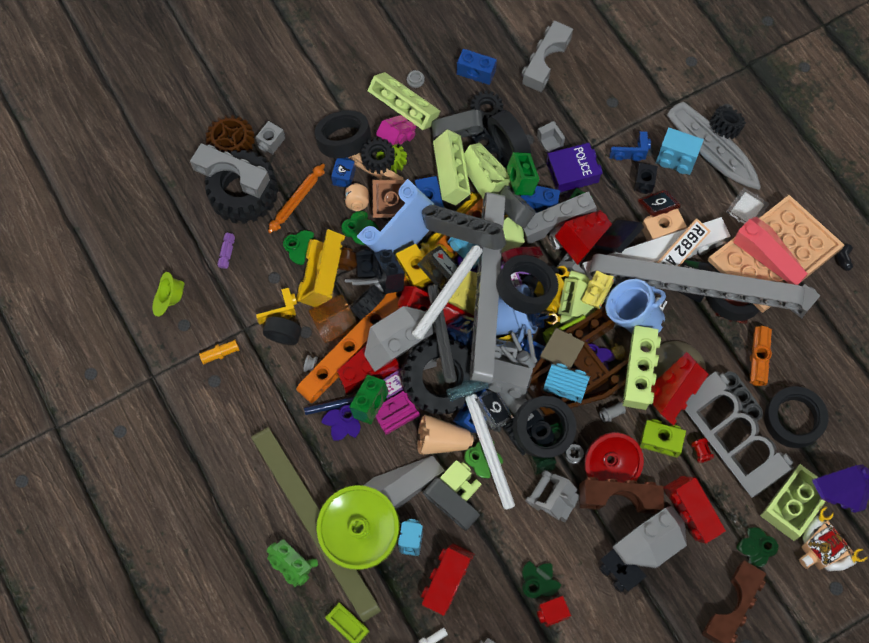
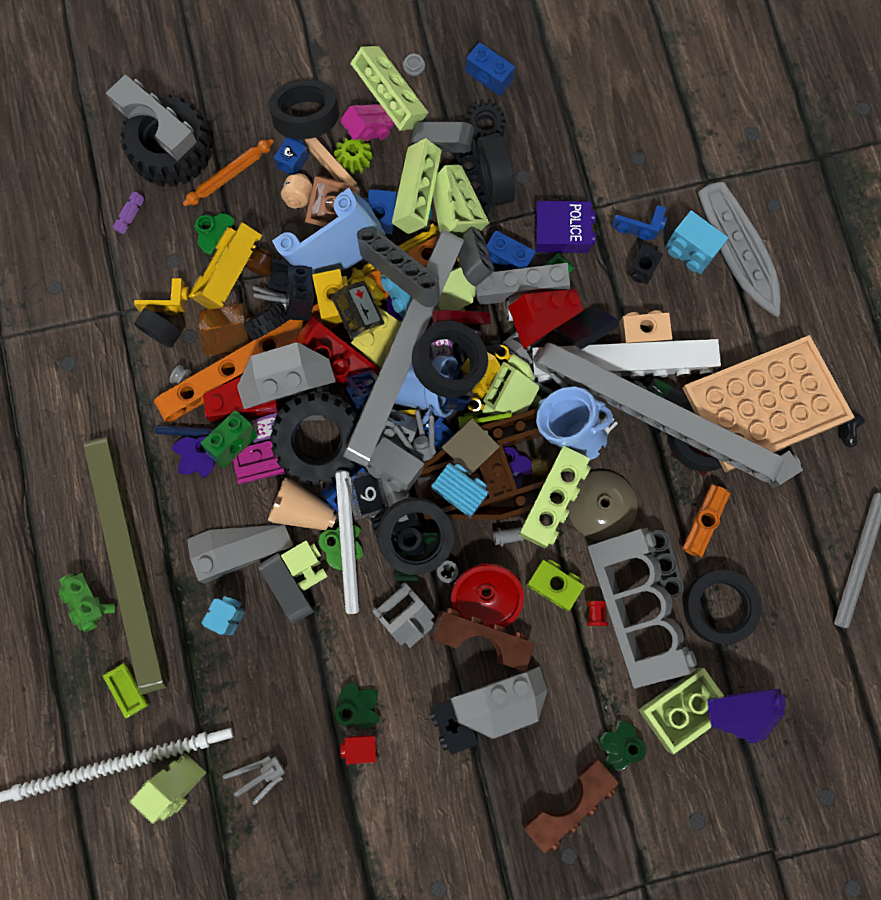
camera: 15 degrees right, 10 degrees up
(168, 294) = (46, 246): lime piece -> none
(219, 351) = (82, 331): light orange pin -> none
(234, 129) = (188, 75): reddish brown gear -> none
(270, 131) = (222, 82): light grey brick -> none
(358, 222) = (291, 222): green plate -> none
(358, 527) = (165, 588): lime dish -> none
(374, 146) = (332, 135): black tyre -> none
(442, 338) = (328, 391): dark grey axle -> none
(446, 578) = (251, 673): red wedge -> none
(447, 292) = (351, 341): white axle -> none
(466, 389) = (337, 464): clear light blue pin -> none
(522, 173) = (495, 219): green brick -> none
(550, 137) = (549, 181): light grey panel -> none
(556, 40) = (596, 62): light grey arch -> none
(598, 289) = (536, 387): light yellow hips -> none
(659, 203) = (650, 300): piece -> none
(677, 386) = (590, 531): red wedge -> none
(685, 244) = (659, 362): tile -> none
(694, 508) = (562, 680): red wedge -> none
(727, 122) = (767, 222): black tyre -> none
(747, 206) = (755, 334): clear piece -> none
(767, 247) = (759, 395): coral wedge -> none
(826, 547) = (702, 773): torso -> none

